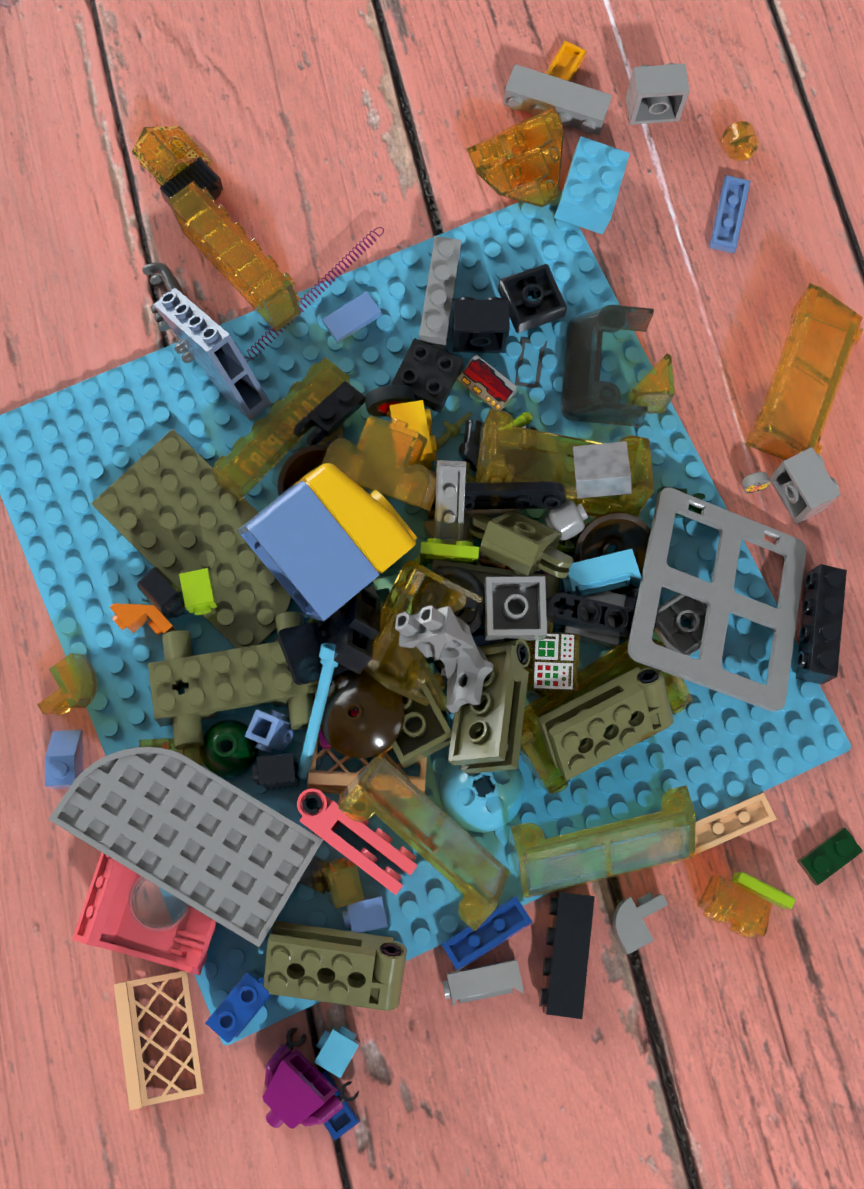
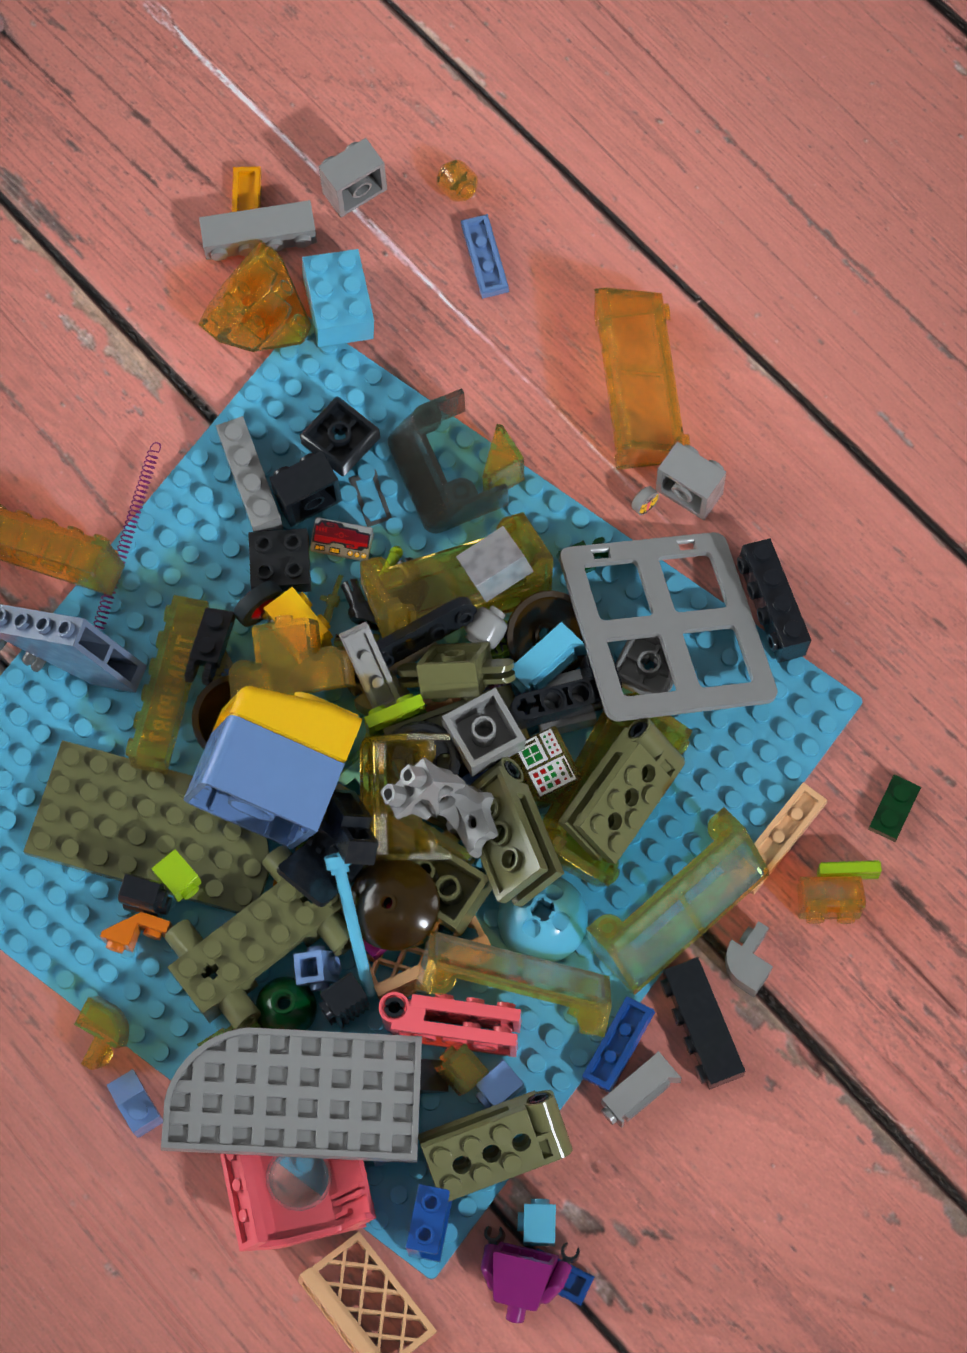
camera: 20 degrees left, 5 degrees down
(352, 317) = (175, 543): medium blue tile -> none

